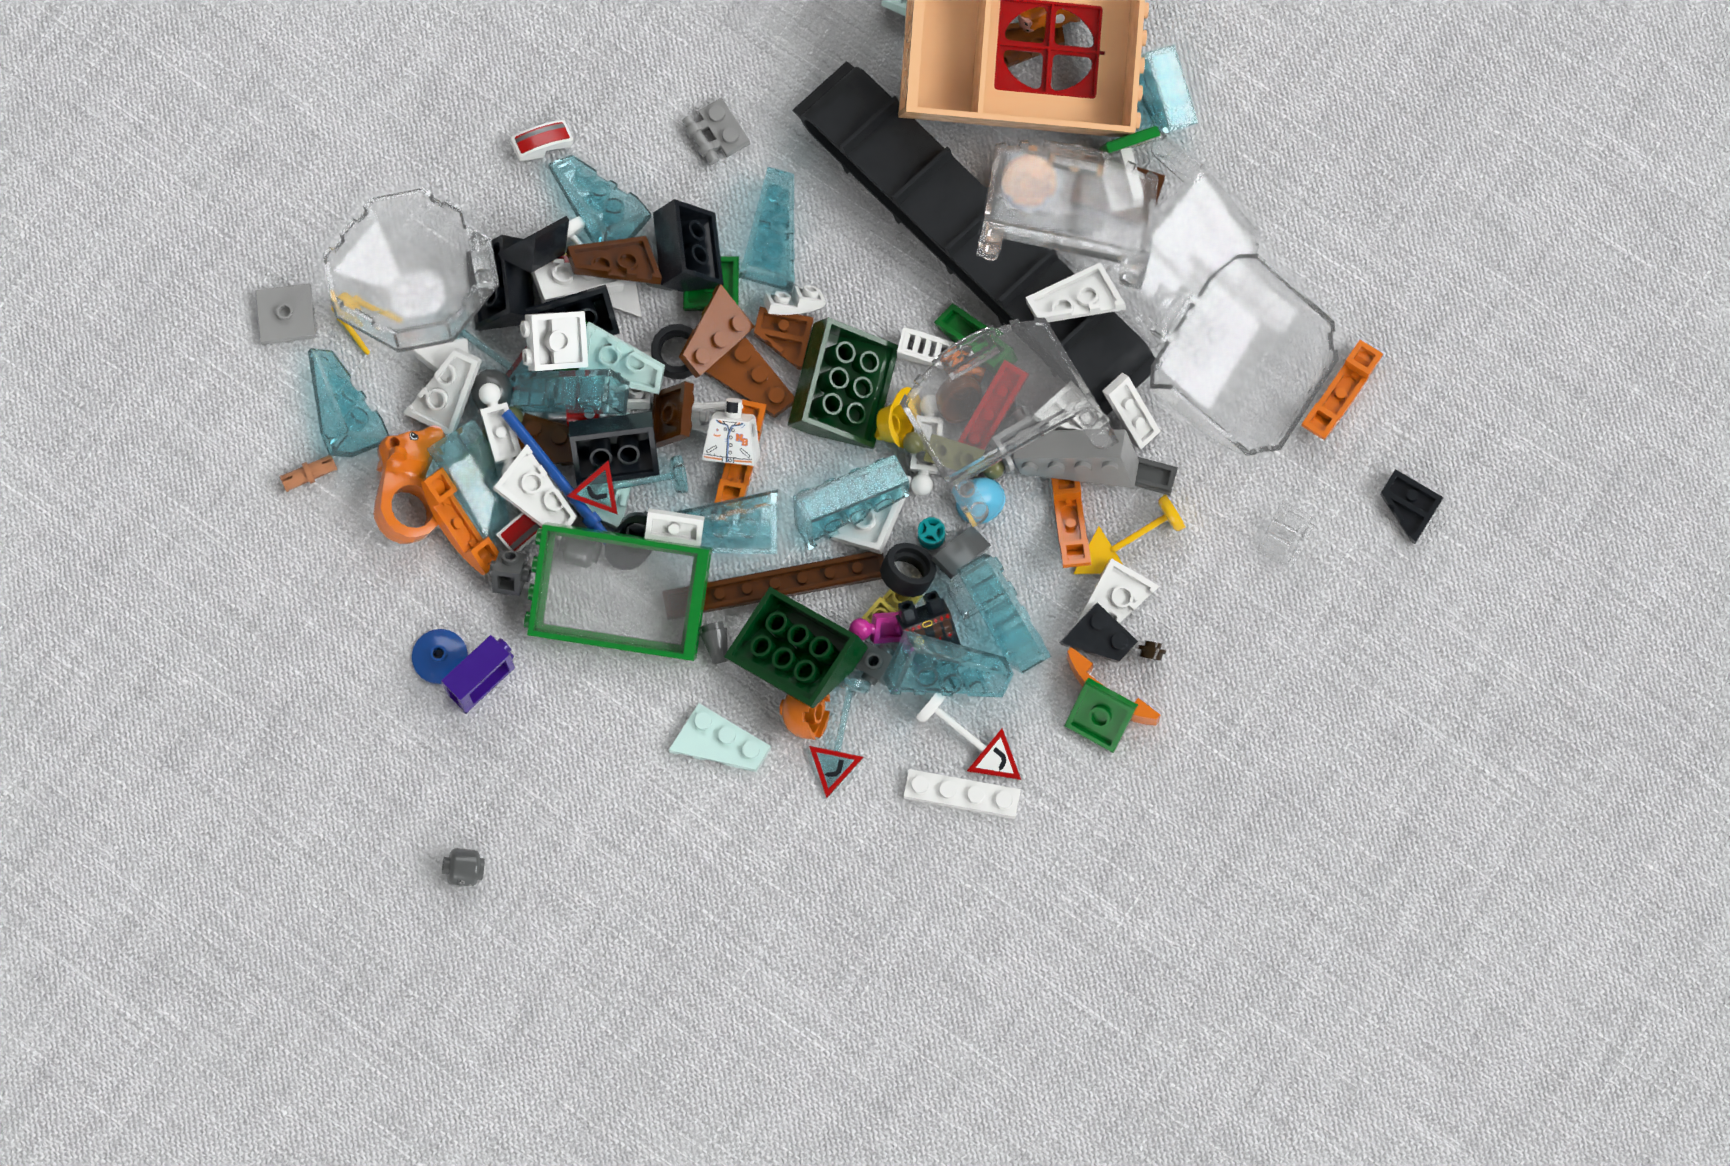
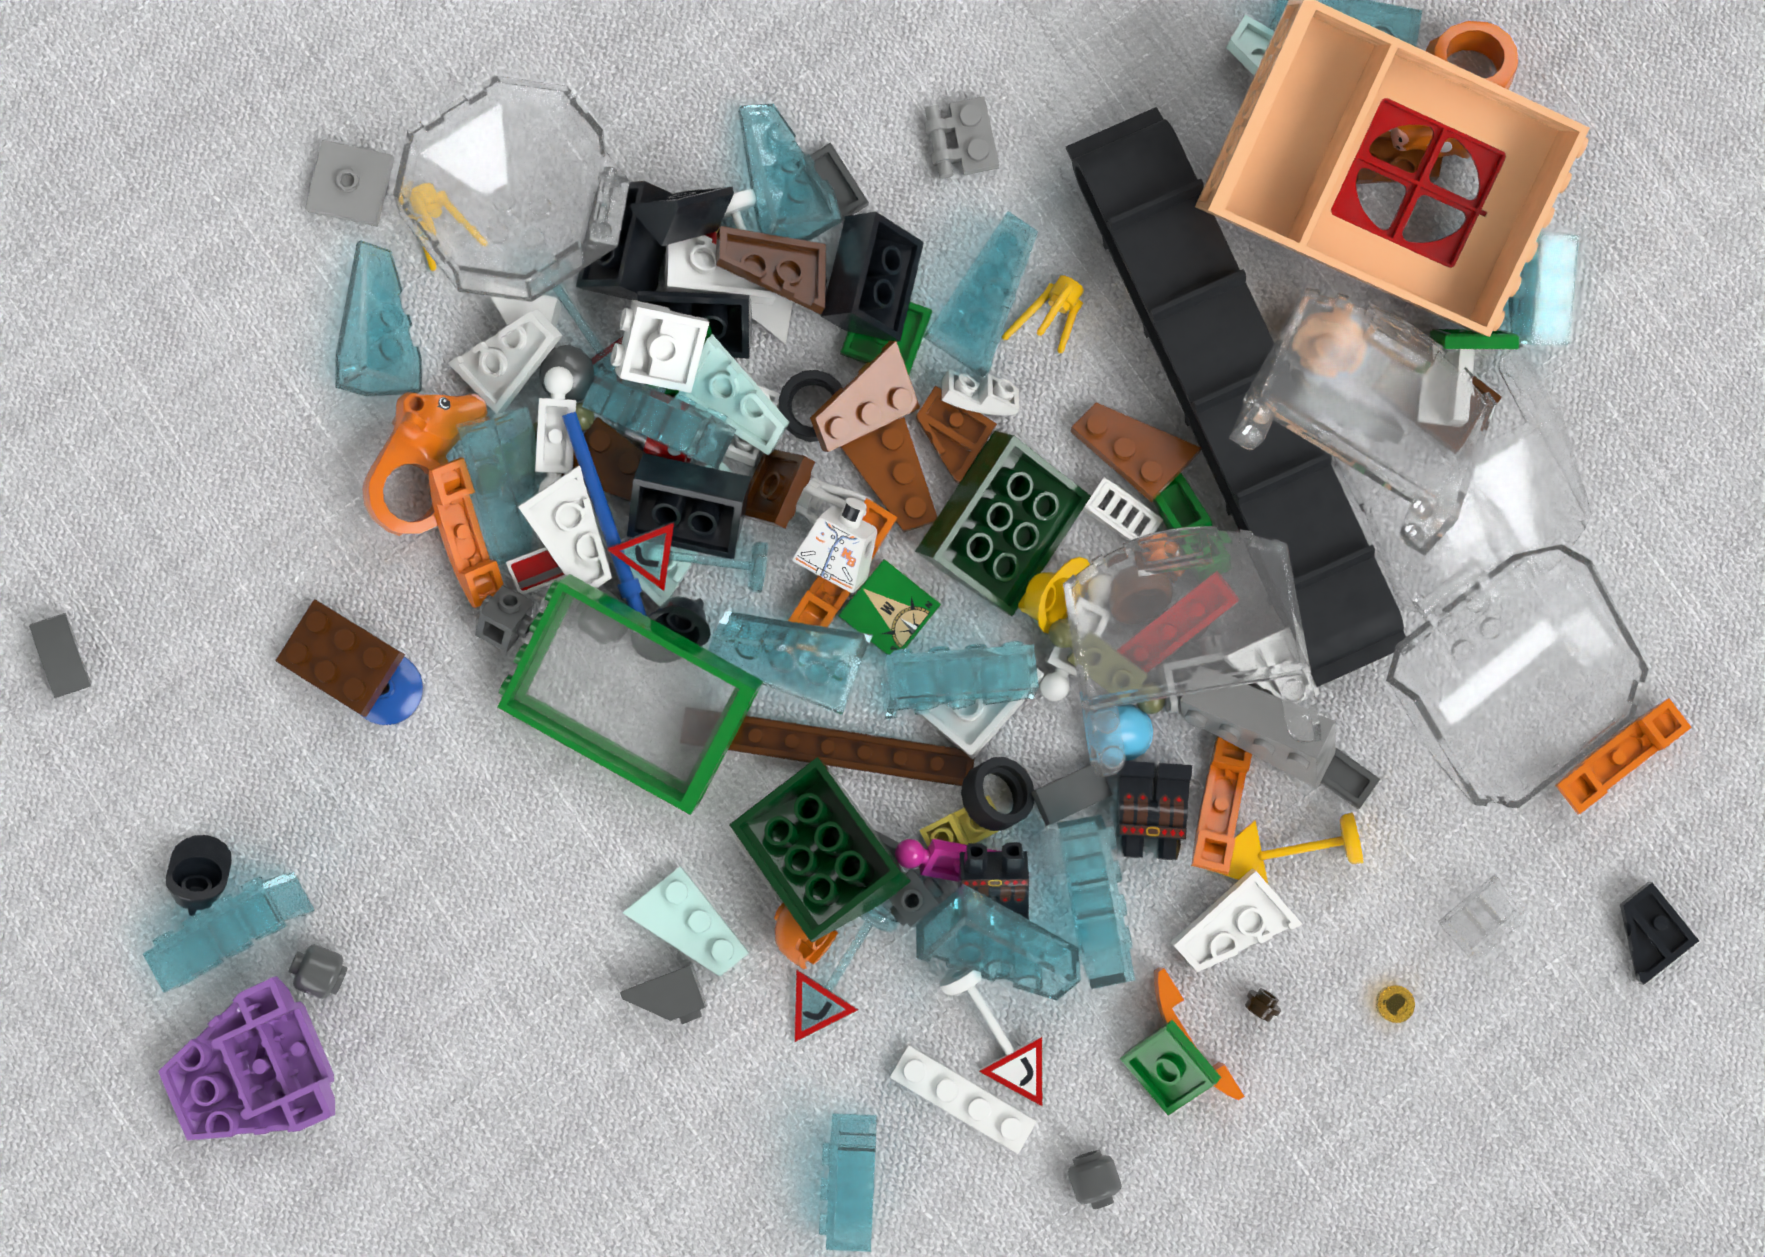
camera: 15 degrees right, 10 degrees up
(194, 713) = (60, 655): none -> dark grey slope
(308, 472) = (305, 397): nougat pin -> none
(352, 828) = (198, 872): none -> black piece
(386, 860) = (226, 929): none -> clear light blue wedge
(399, 643) = (340, 658): none -> reddish brown plate
(439, 950) = (252, 1069): none -> medium lavender wedge
(479, 673) = (420, 735): dark purple window -> none
(541, 138) = (737, 70): slope -> none
(630, 183) = (847, 192): none -> dark grey tile
(674, 527) = (723, 642): white plate -> none
(715, 640) = (728, 793): dark grey cone -> none
(723, 794) = (670, 995): none -> dark grey slope
(785, 470) = (889, 609): none -> green tile
(827, 216) = (1063, 296): none -> yellow plant
(902, 878) = (849, 1183): none -> clear light blue wedge
(918, 301) = (1134, 449): none -> dark orange wing
(933, 528) = (1048, 746): teal wheel -> none
(1022, 552) = (1158, 818): none -> black hips
(1076, 813) = (1094, 1179): none -> dark grey head
(1077, 296) = (1337, 527): white wing -> none
(1100, 635) = (1205, 964): black wing -> none
(1131, 411) = (1350, 692): white plate -> none
(1246, 619) = (1395, 1003): none -> clear yellow tile

